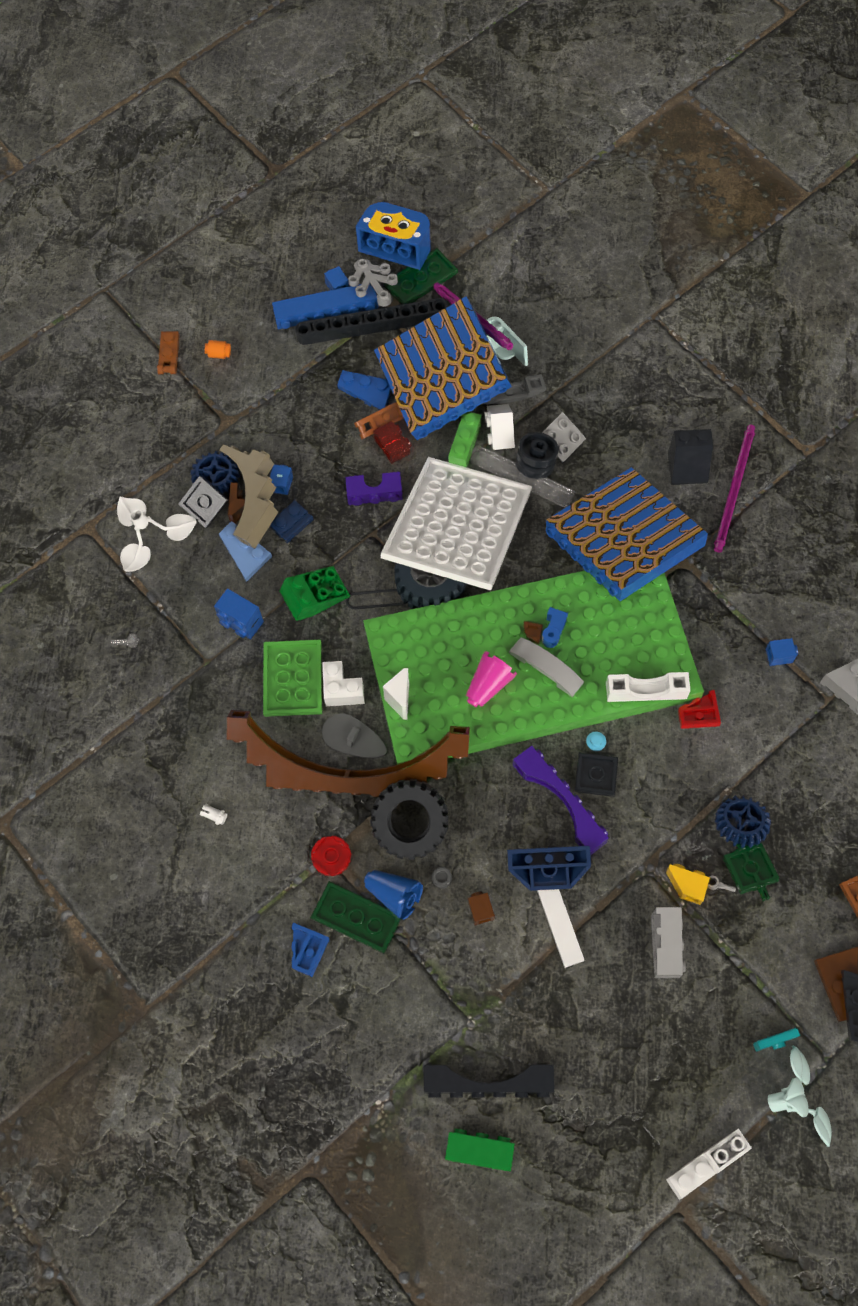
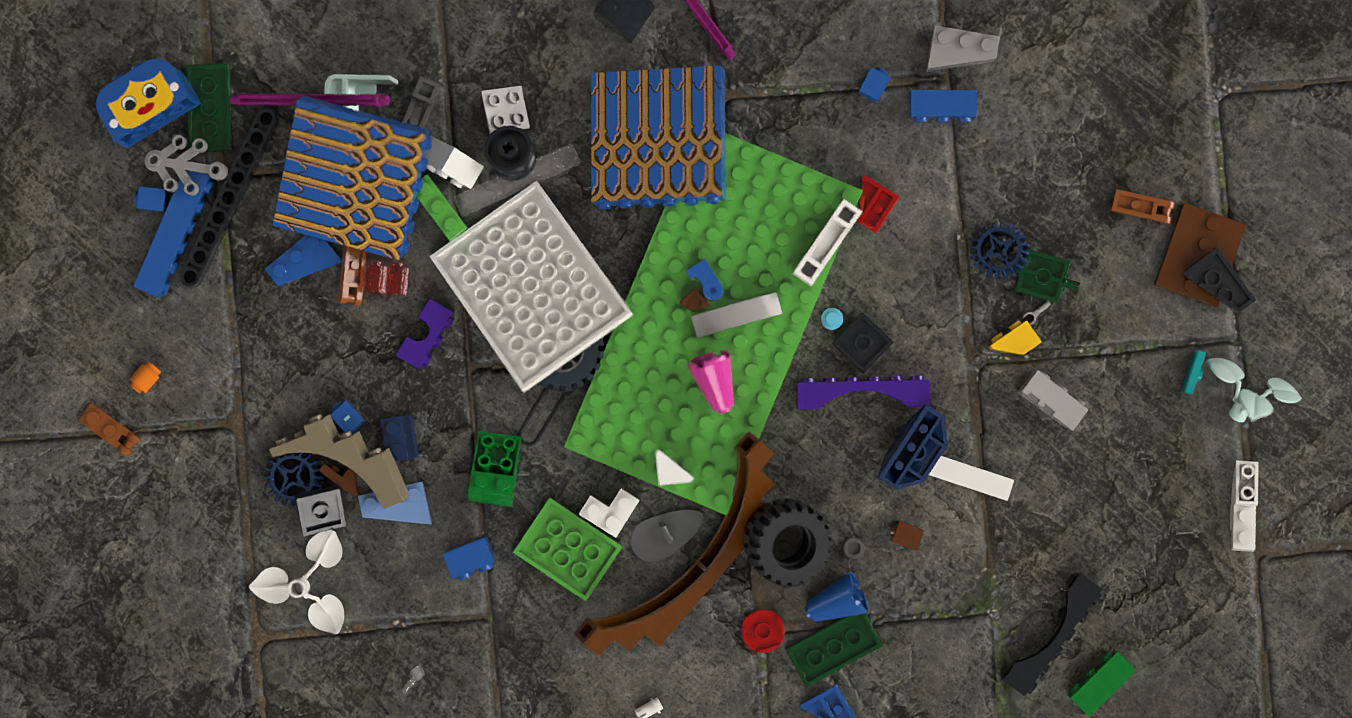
camera: 55 degrees left, 20 degrees up
(808, 707) = (943, 105): none -> blue brick

